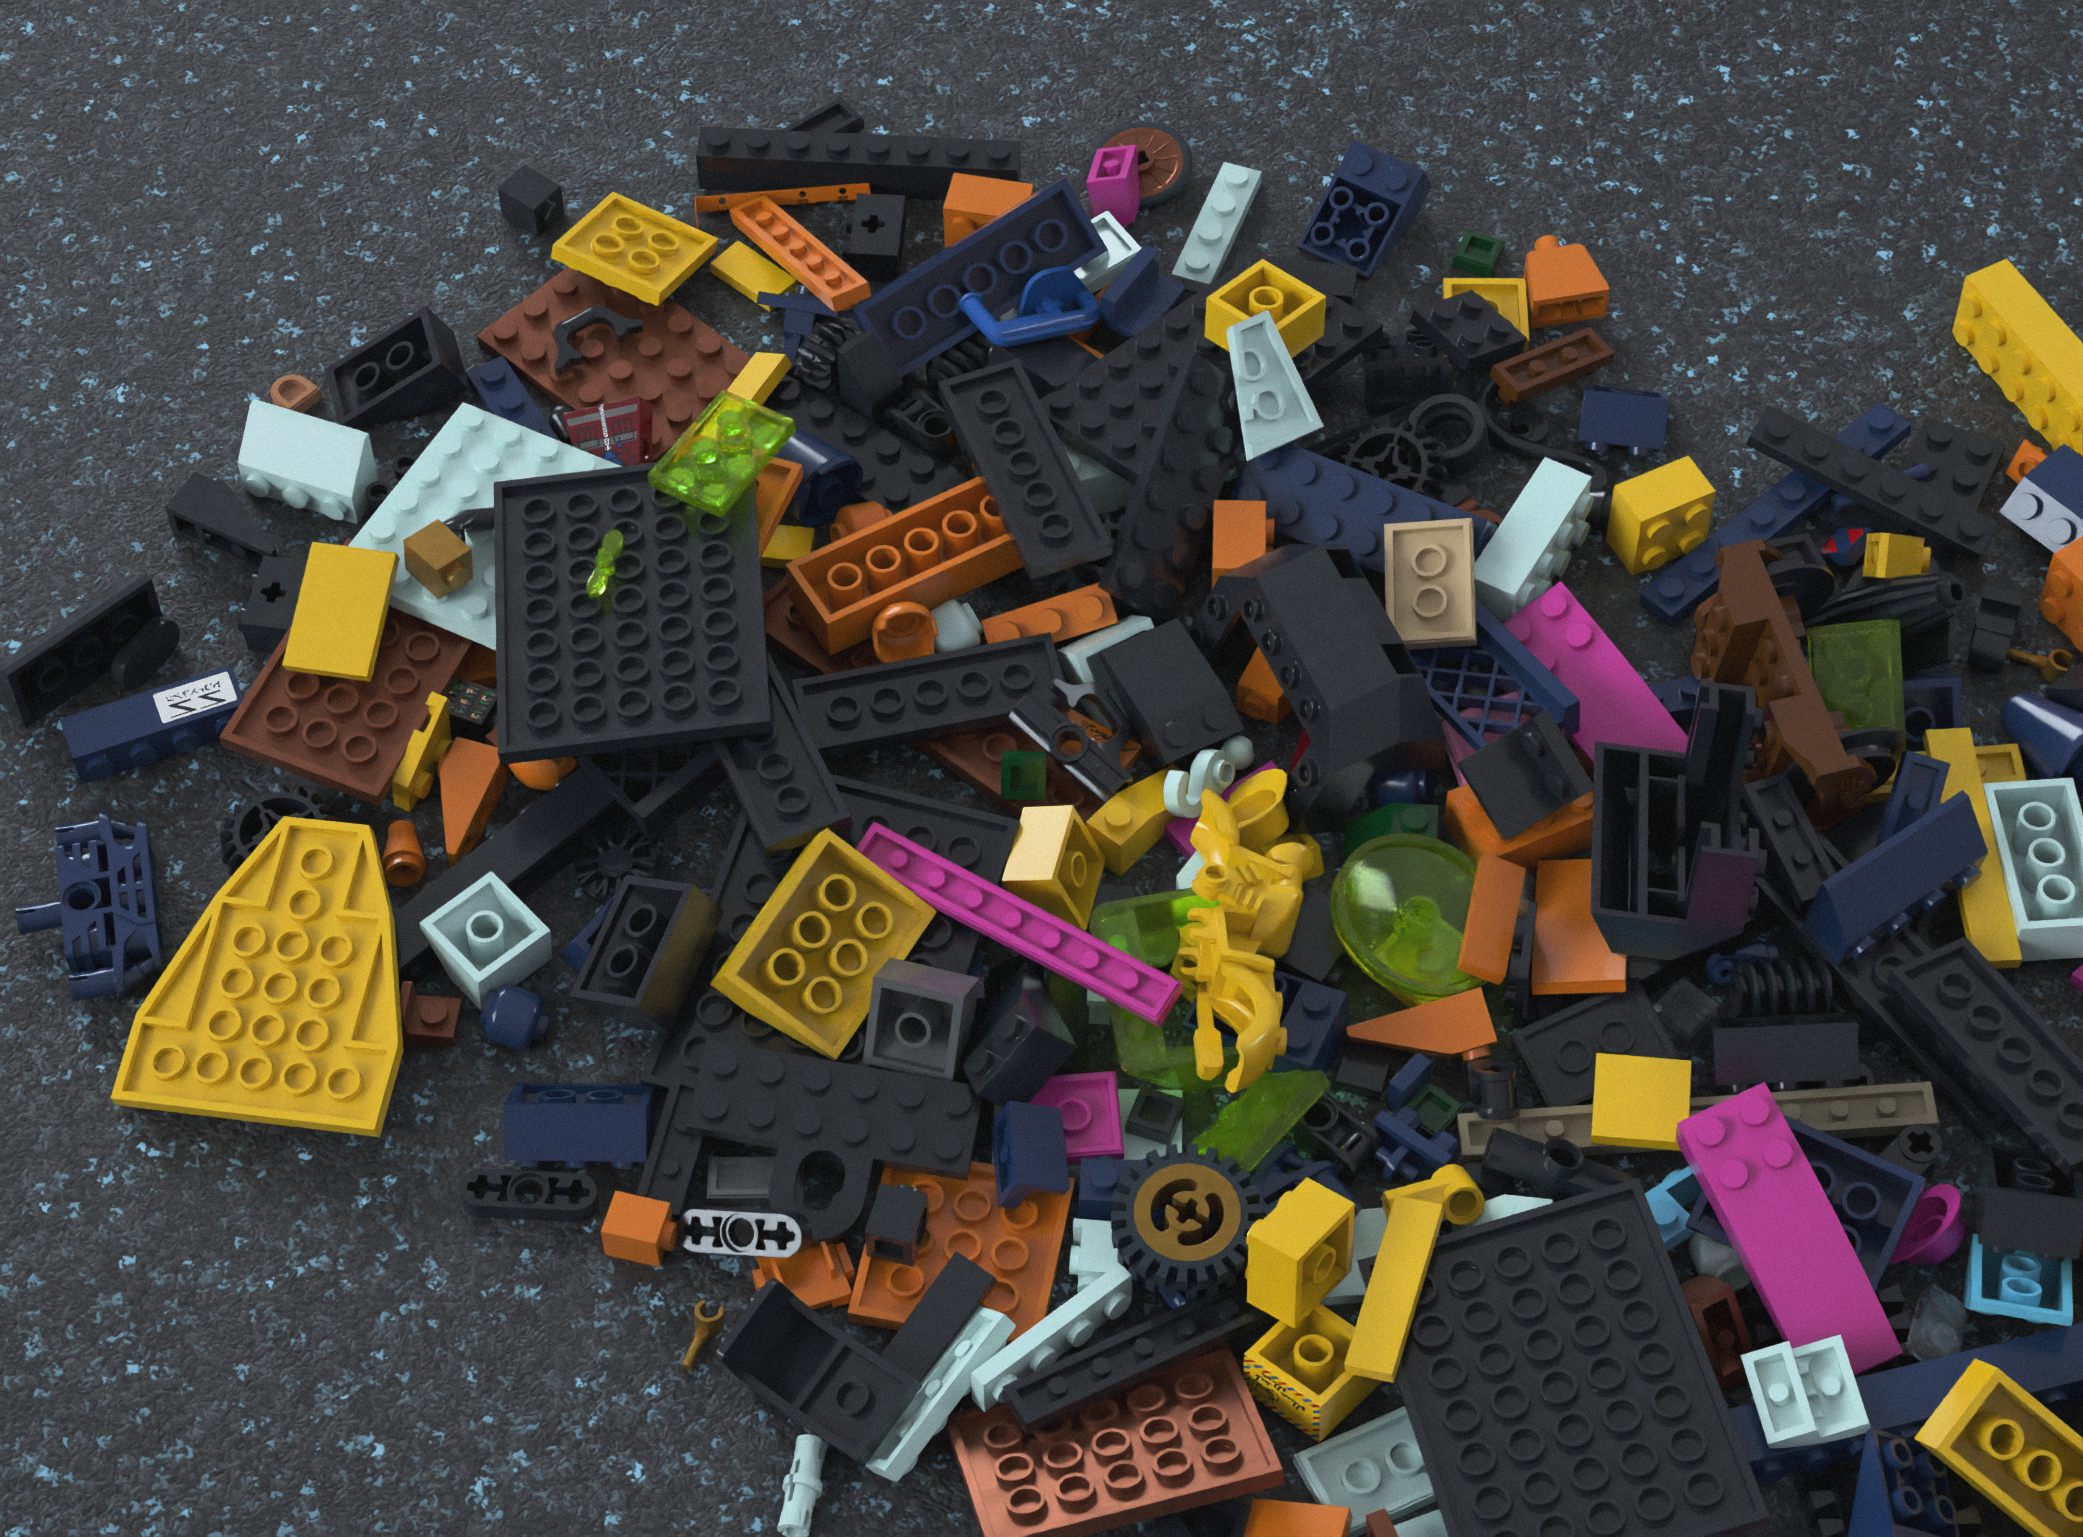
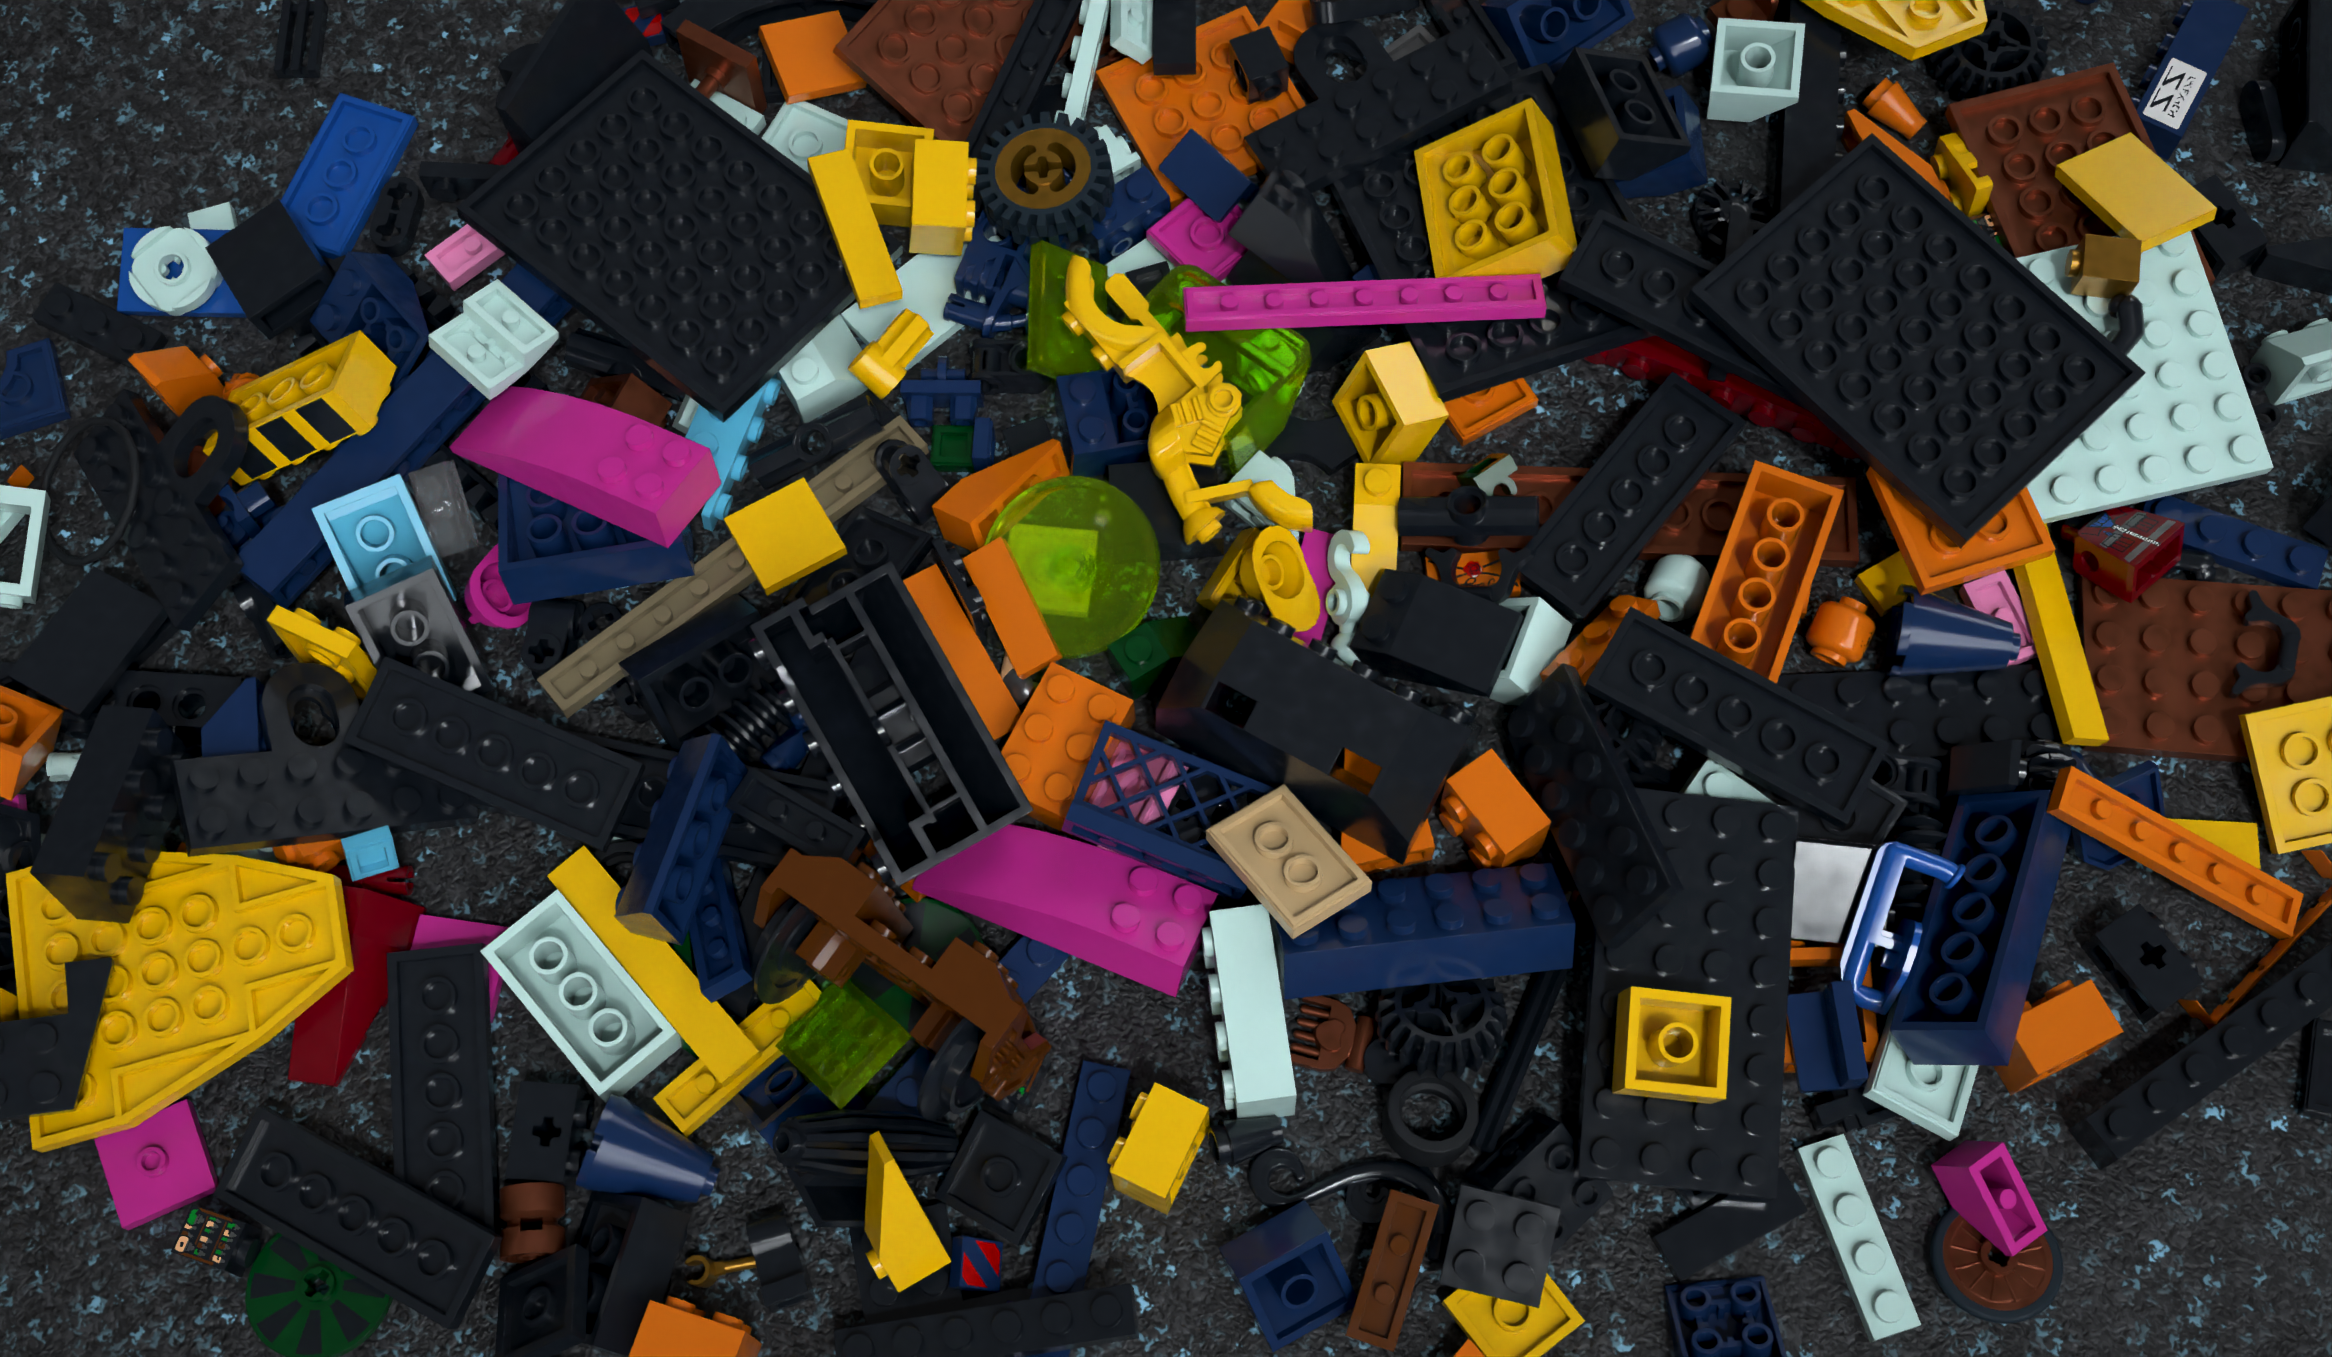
camera: 145 degrees right, 15 degrees up
(604, 562) = (1967, 343): clear neon green piece -> none
(721, 453) = (1982, 503): clear neon green plate -> none
(903, 632) = (1698, 525): orange hair -> none
(919, 1019) = (1374, 202): dark grey slope -> none
(1268, 388) = (1587, 938): light aqua wing -> none
(1525, 775) = (1064, 718): black bracket -> none

